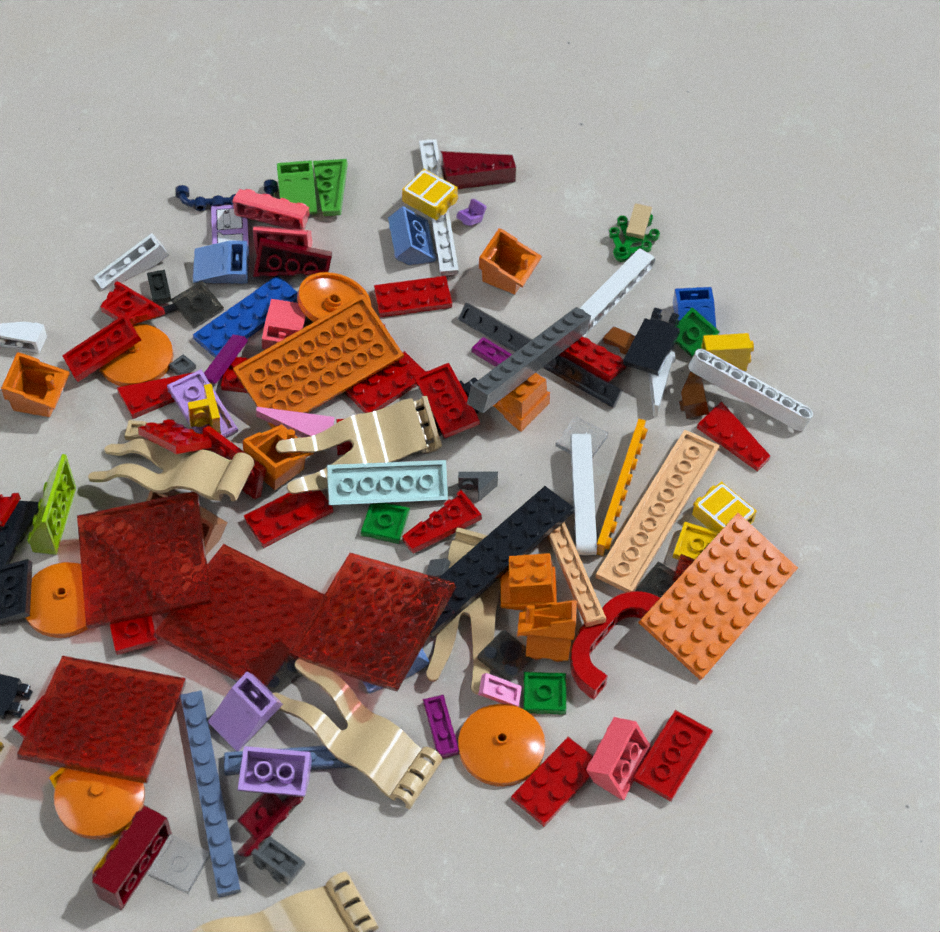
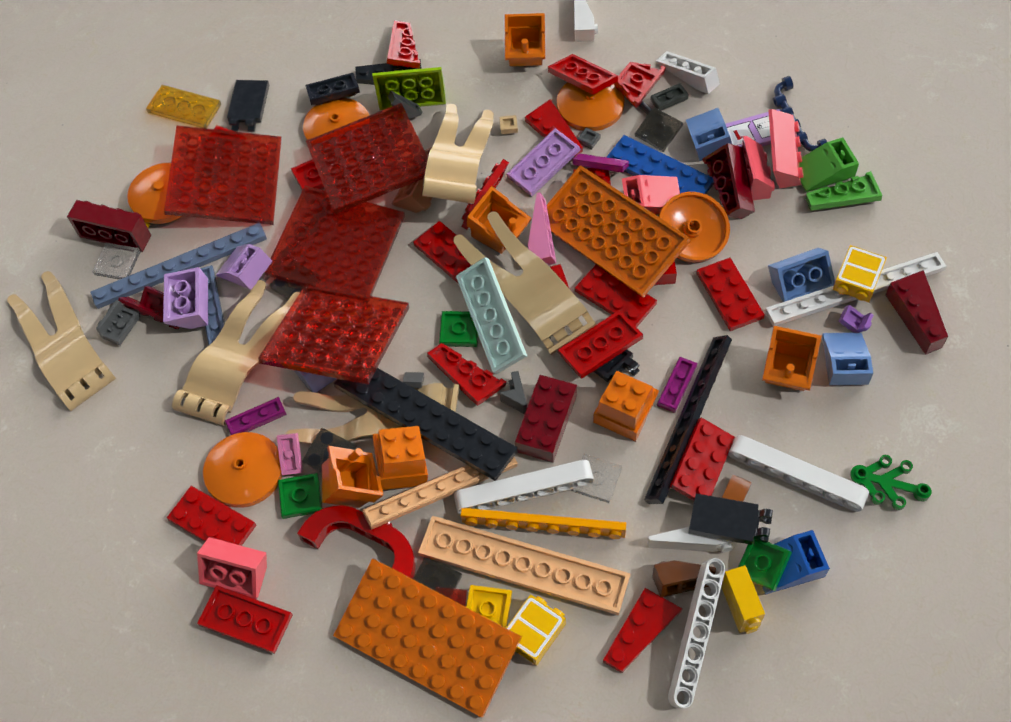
camera: 85 degrees right, 5 degrees up
(70, 523) = (411, 108): none -> dark grey slope
(174, 436) = (494, 144): red plate -> none
(205, 410) = (528, 160): yellow bracket -> none
(516, 461) = (546, 418): none -> dark red brick
(517, 222) = (847, 359): none -> medium blue slope
(528, 360) = (648, 394): dark grey brick -> none
(639, 221) = (908, 482): tan tile -> none

